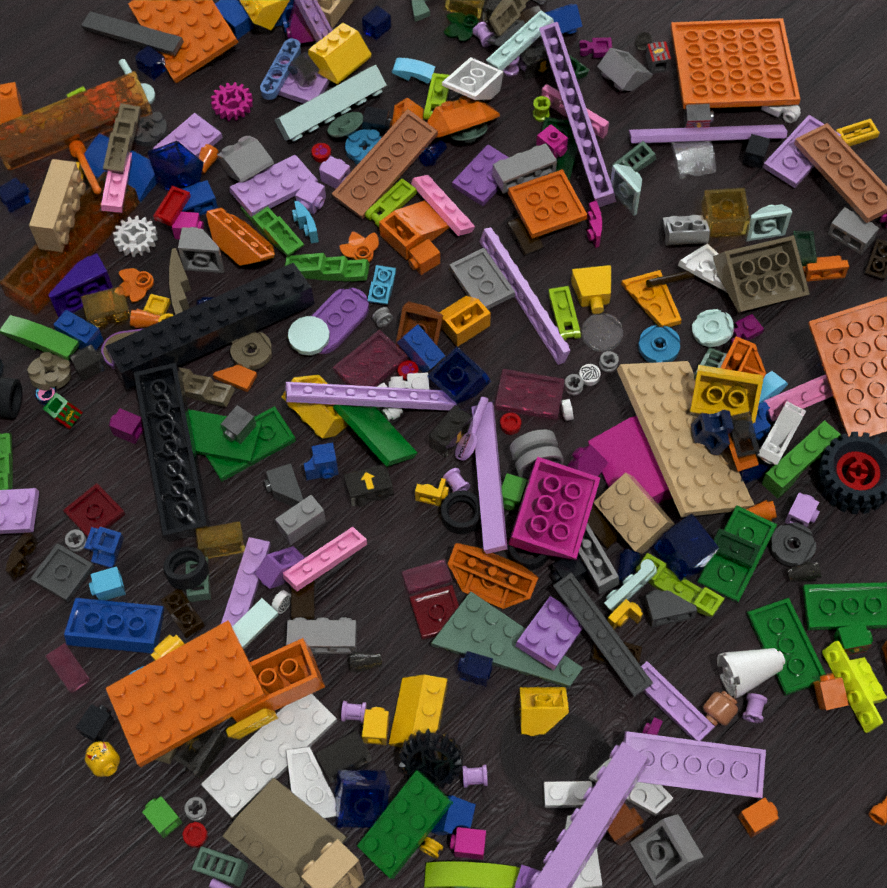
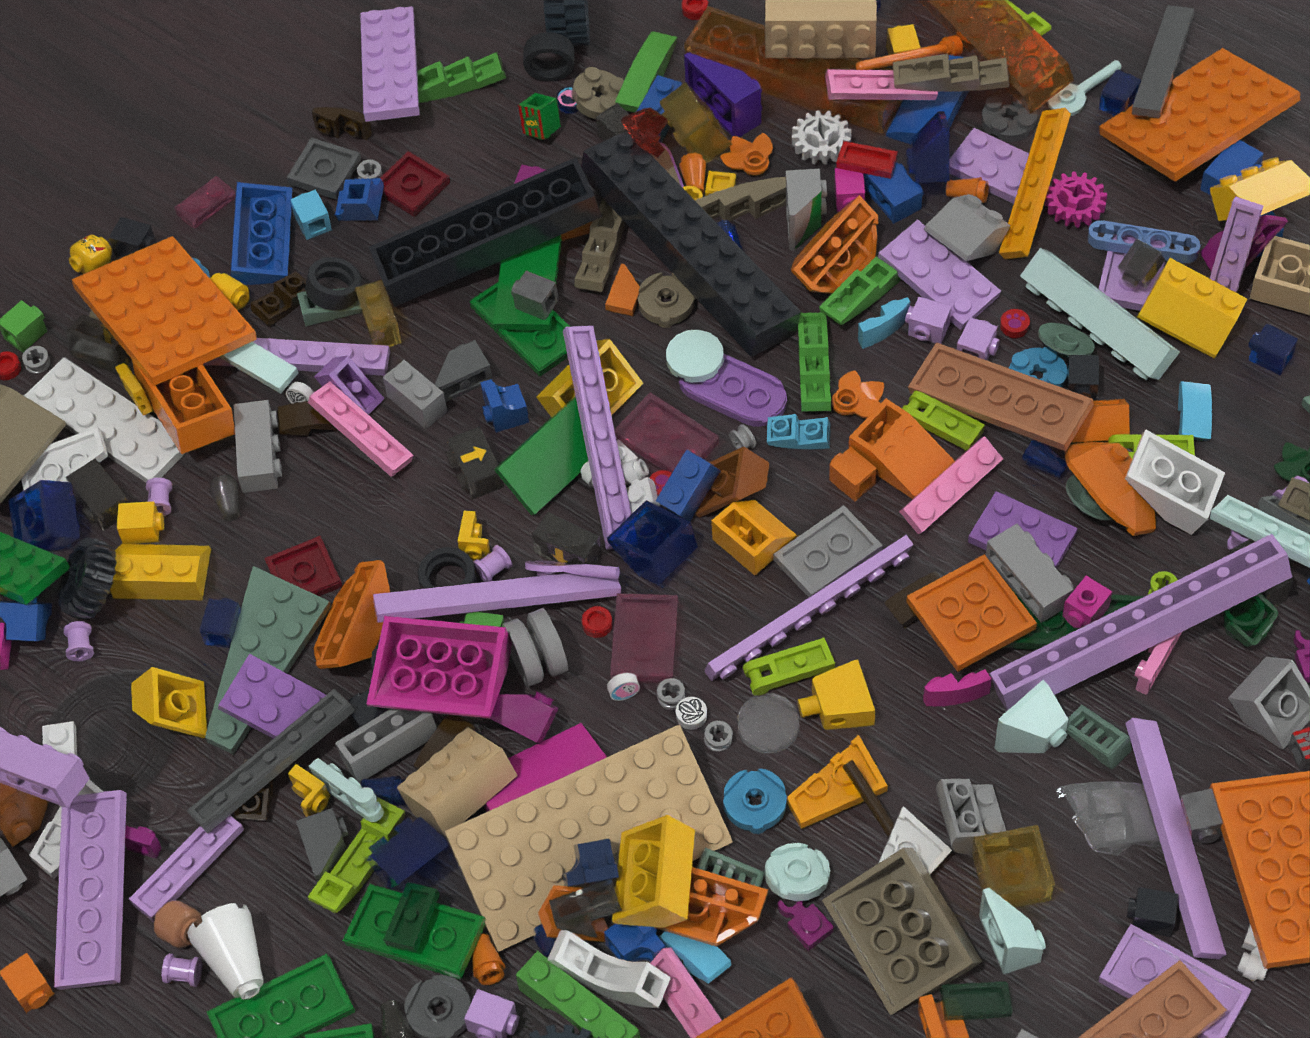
camera: 85 degrees right, 5 degrees down
(106, 335) = (644, 129): none -> clear red slope
(214, 115) = (1035, 183): none -> light orange plate
(426, 576) = (347, 546): clear pink plate -> none

